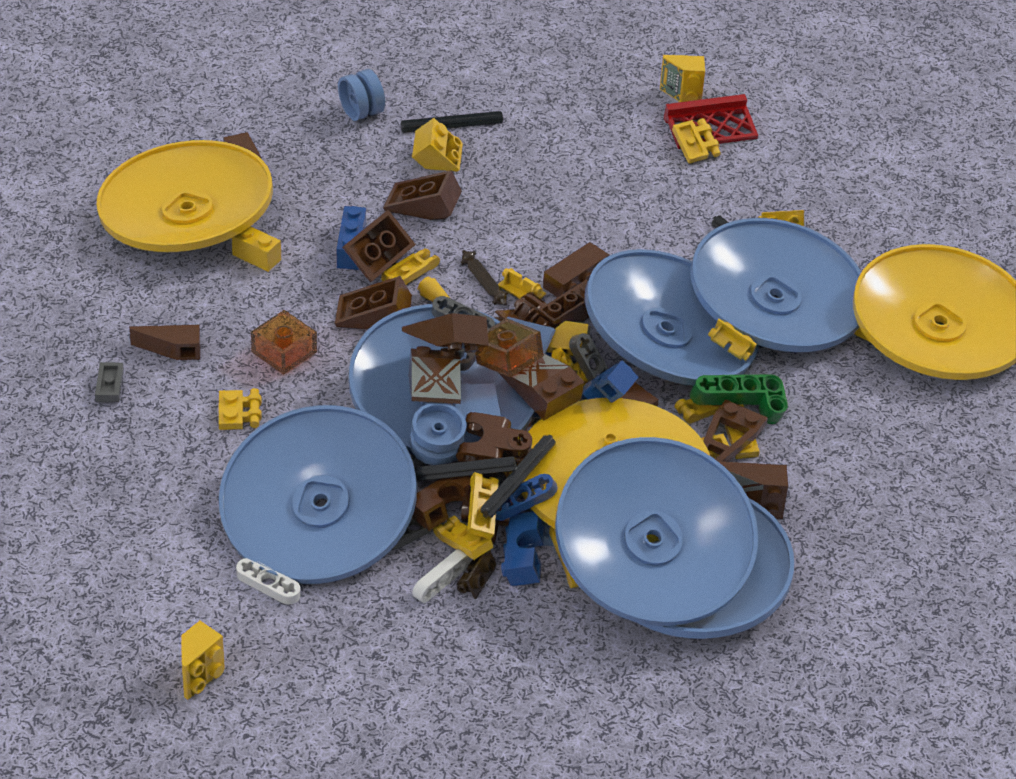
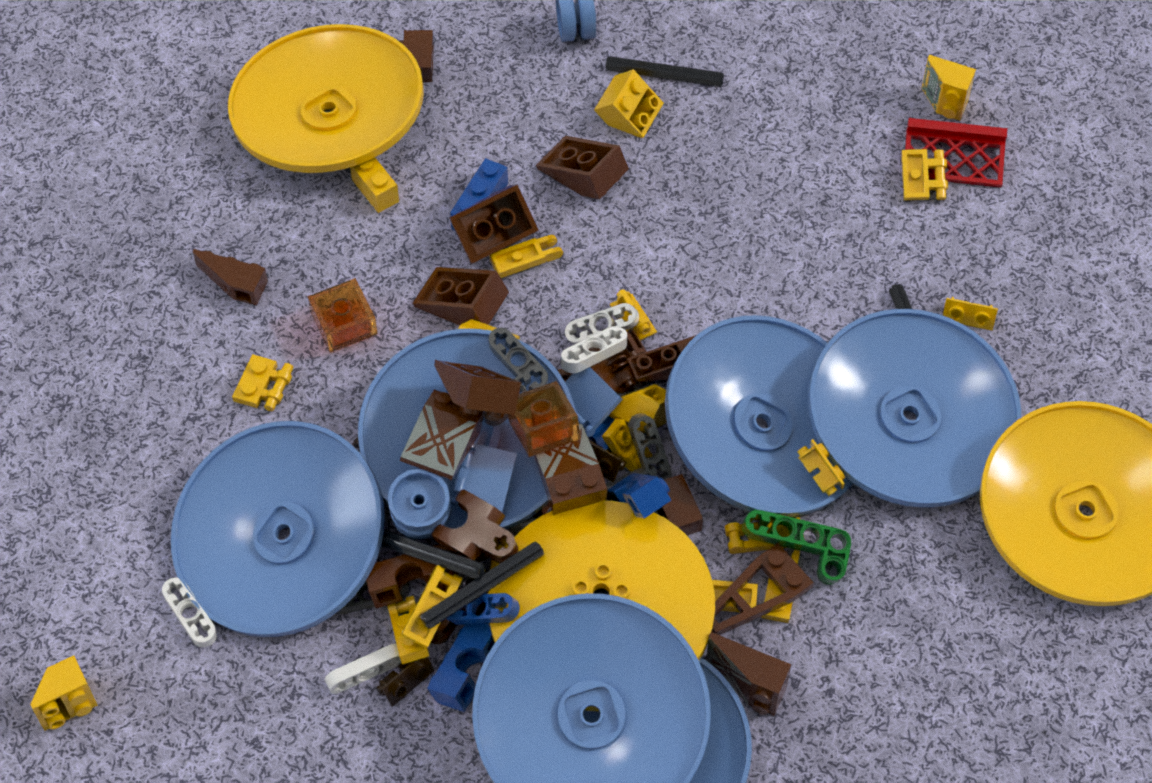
camera: 25 degrees right, 15 degrees up
(109, 382) = (148, 308): dark grey plate -> none
(430, 289) = (534, 293): yellow cone -> none
(484, 277) = (598, 285): dark brown wheel -> none
(511, 281) = (617, 311): none -> white beam
(513, 304) = (580, 358): none -> white beam
(572, 269) = (700, 311): reddish brown brick -> none

